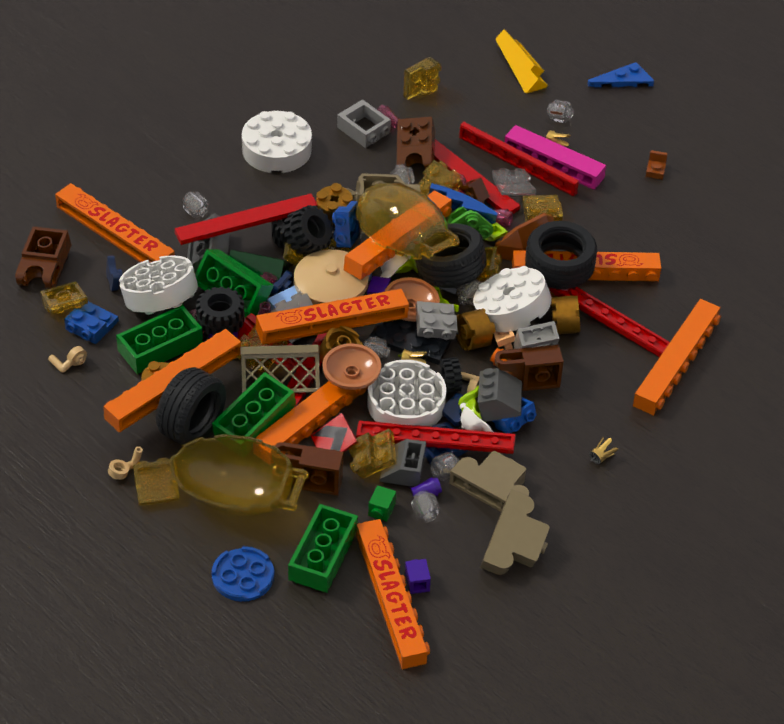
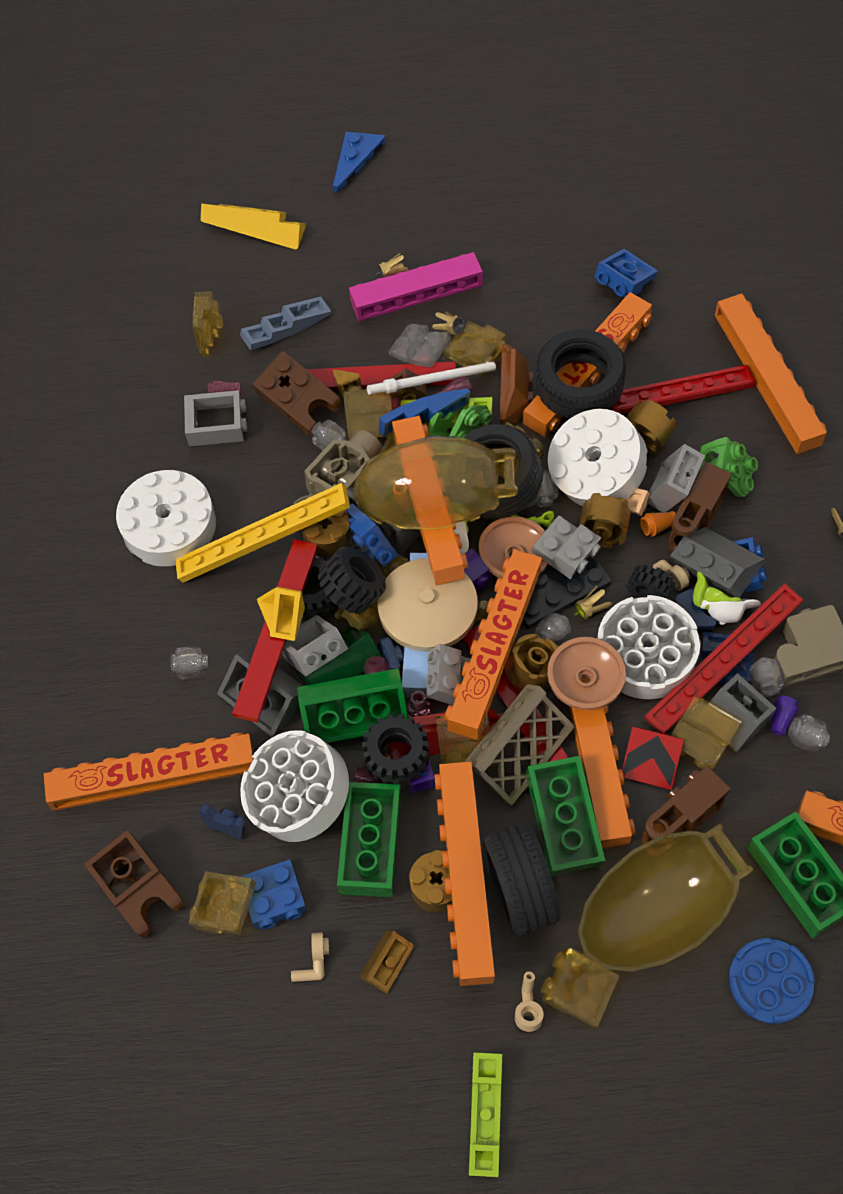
camera: 45 degrees left, 15 degrees up
(45, 483) = (485, 1115): none -> lime slope
(96, 392) = (386, 961): none -> pearl gold slope
(254, 243) = (321, 640): none -> light grey window
(256, 212) = (282, 612): none -> yellow slope
(301, 177) = (262, 532): none -> yellow plate
(382, 503) = (775, 772): green brick -> none
(441, 154) = (346, 379): none -> pearl gold slope
(457, 114) = (290, 321): none -> sand blue slope
(458, 175) = (391, 385): none -> white bar
(519, 159) = (389, 318): red tile -> none
(543, 186) = (454, 325): none -> pearl gold piece
(560, 111) = (357, 238): clear head -> none
(580, 371) = (733, 459): none -> bright green piece
(656, 164) = (499, 214): dark orange bracket -> none
(675, 246) = (624, 273): none -> blue plate

